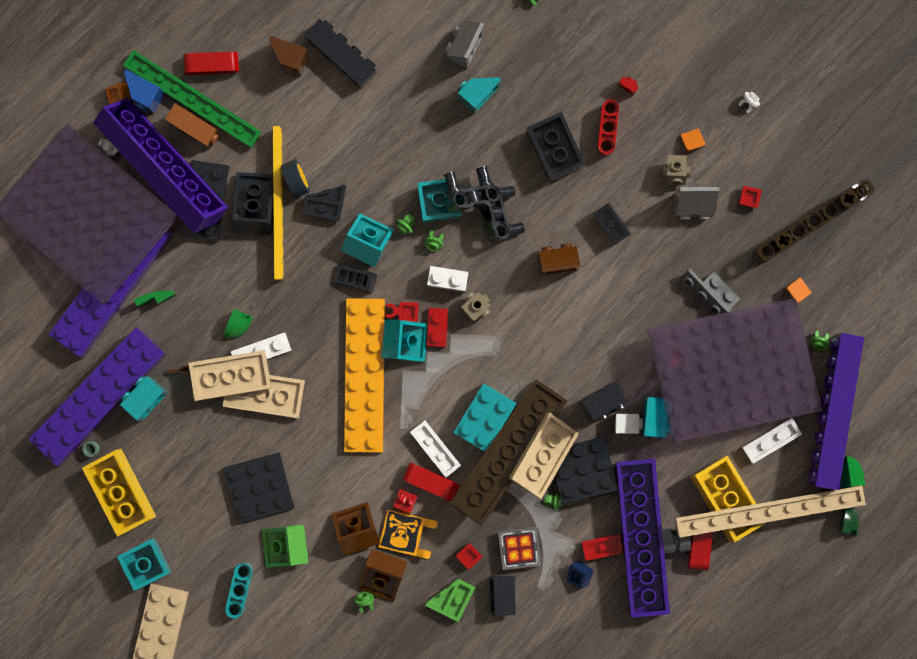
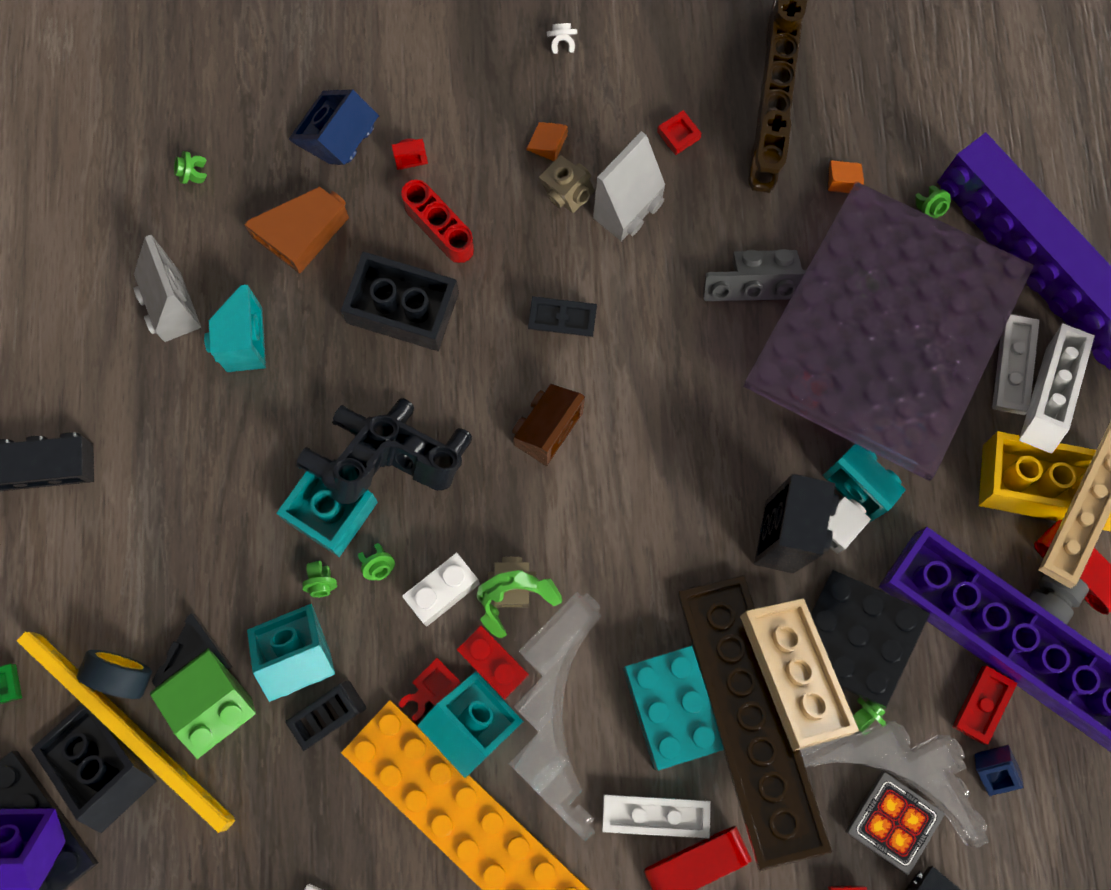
camera: 50 degrees left, 10 degrees down
(316, 225) = (203, 703): none -> bright green slope
(467, 301) = (499, 584): none -> bright green helmet
(550, 70) = (300, 226): none -> dark orange slope
(610, 39) = (335, 126): none -> dark blue slope
(770, 465) = (1057, 389): none -> white brick

